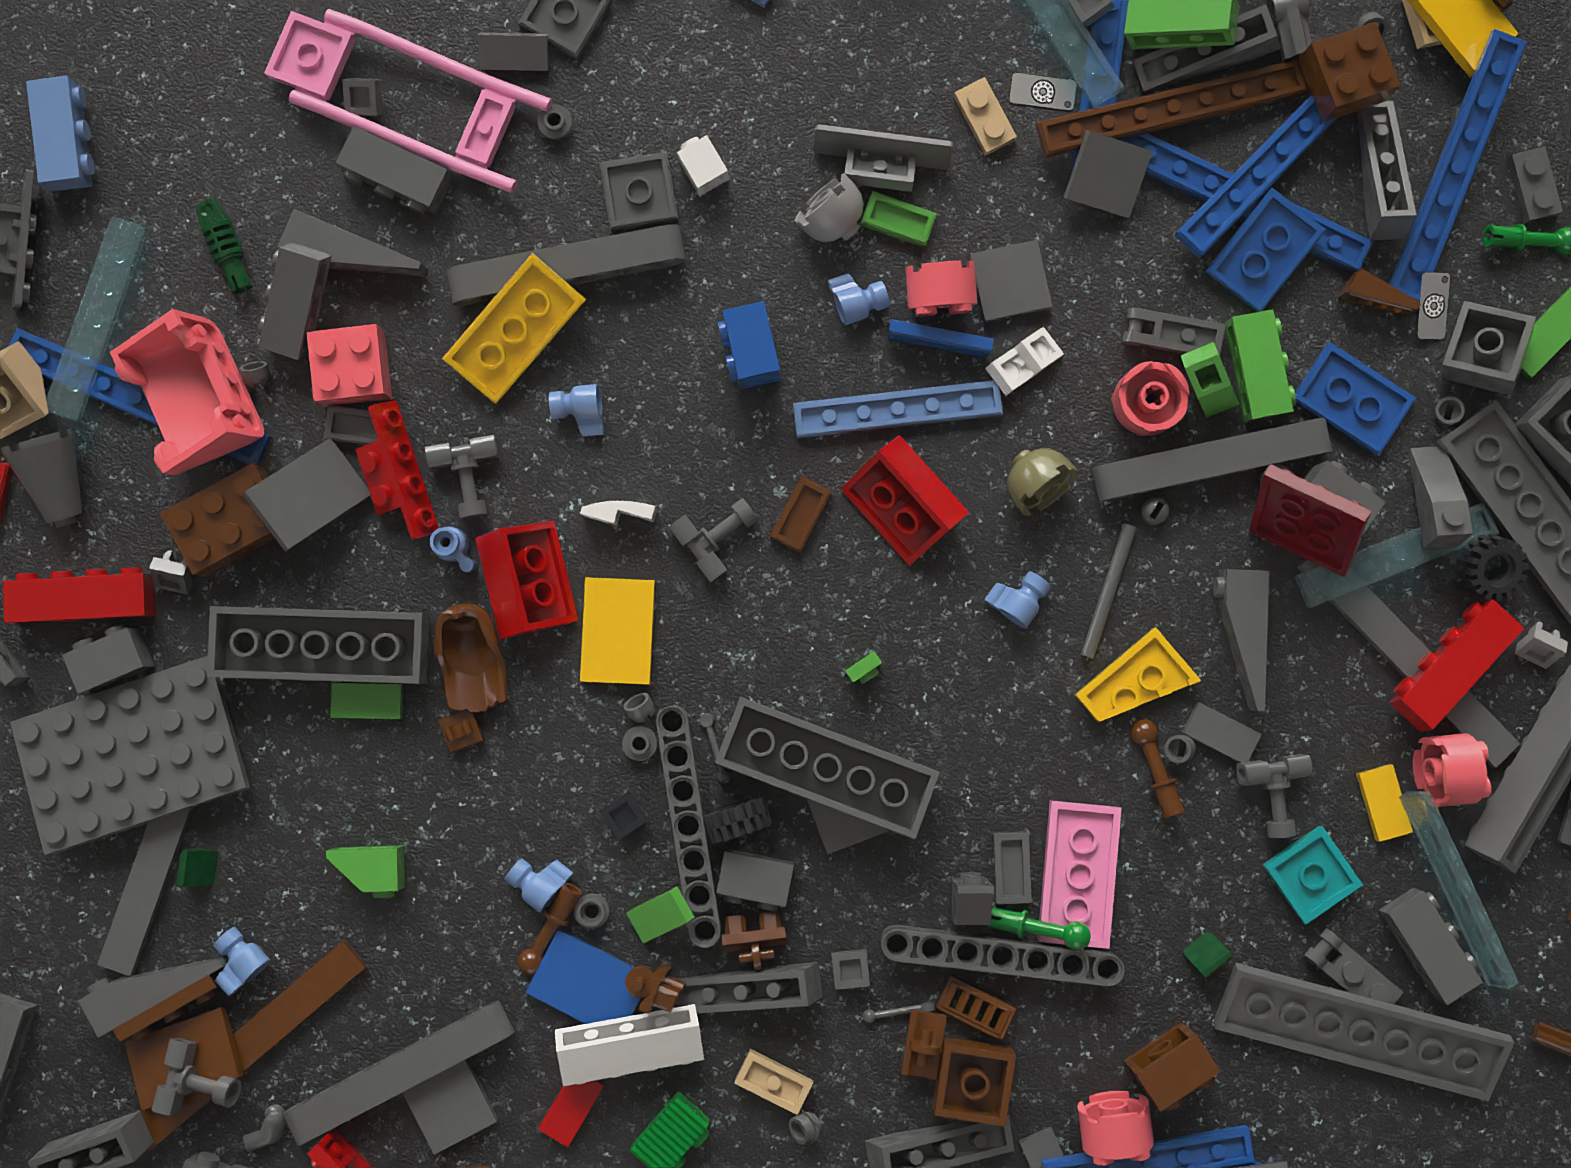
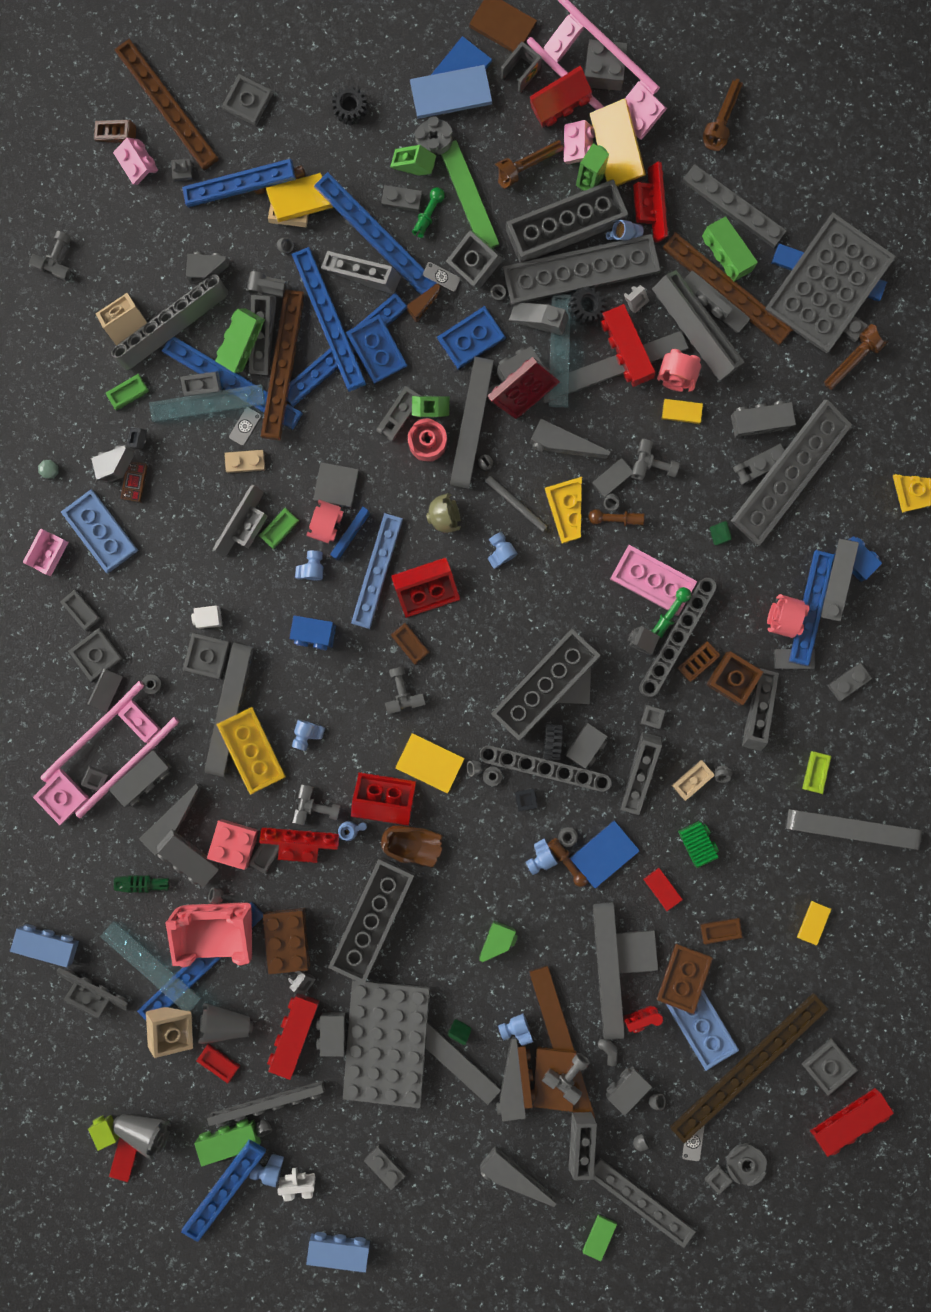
camera: 65 degrees left, 0 degrees up
(307, 494) = (291, 893): dark grey tile -> none
(367, 701) = (410, 908): bright green tile -> none
(461, 730) = (446, 865): reddish brown tile -> none
(610, 511) = (367, 741): white slope -> none
(628, 1045) = (643, 845): white brick -> none
(657, 987) = (620, 820): reddish brown hips -> none
(660, 915) = (584, 802): bright green tile -> none
(707, 721) = (495, 737): dark grey hinge -> none
(738, 939) = (618, 750): reddish brown hips -> none
(833, 211) = (261, 560): light grey cylinder -> none
(864, 669) = (503, 644): bright green plate -> none
(869, 1015) = (680, 717): dark grey hinge -> none
(923, 1044) = (705, 695): reddish brown hips -> none
(1011, 867) = (635, 613): dark grey tile -> none
(1024, 361) = (380, 495): white slope -> none
(1107, 174) = (302, 412): dark grey tile -> none
(1173, 1067) = (769, 575): reddish brown brick -> none
(1260, 366) = (434, 377): bright green brick -> none
(1312, 875) = (703, 463): teal plate -> none
(1349, 72) = (304, 267): reddish brown brick -> none
(1458, 889) = (740, 393): clear light blue tile -> none

